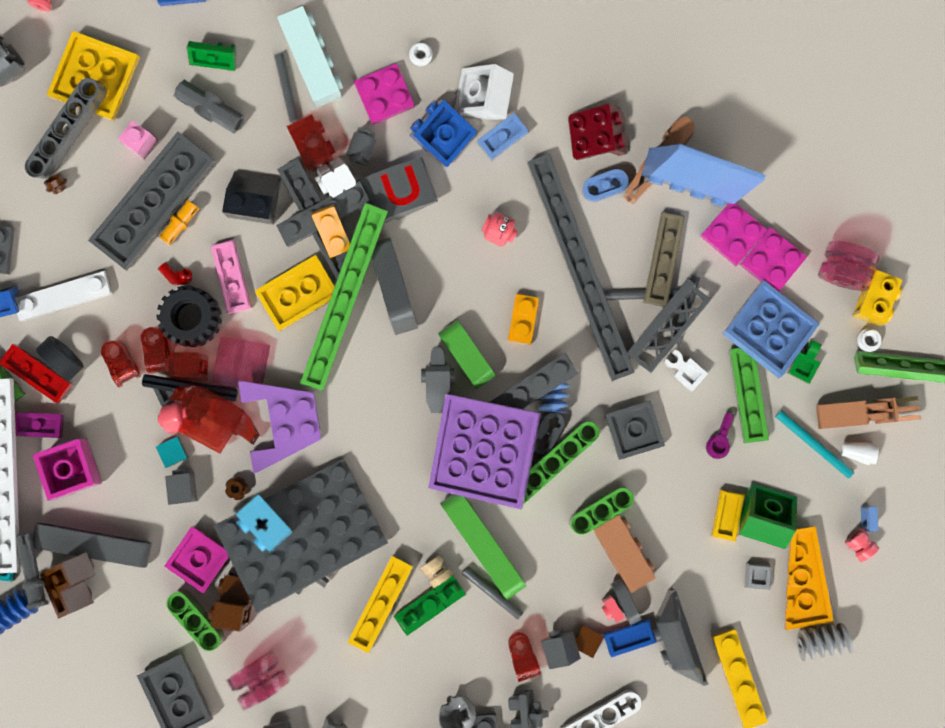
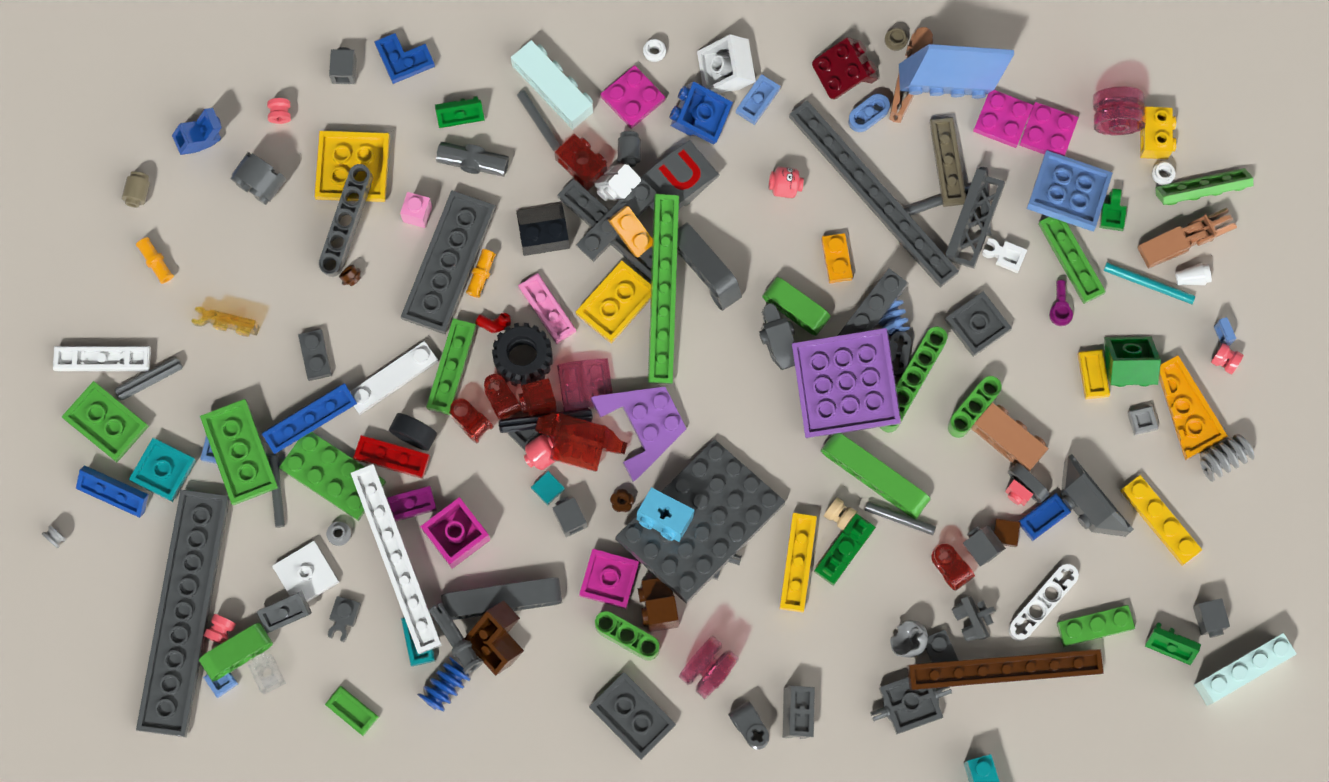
camera: 20 degrees left, 10 degrees down
(121, 304) = (451, 366): none -> bright green plate
(658, 119) = (896, 39): none -> dark tan plate

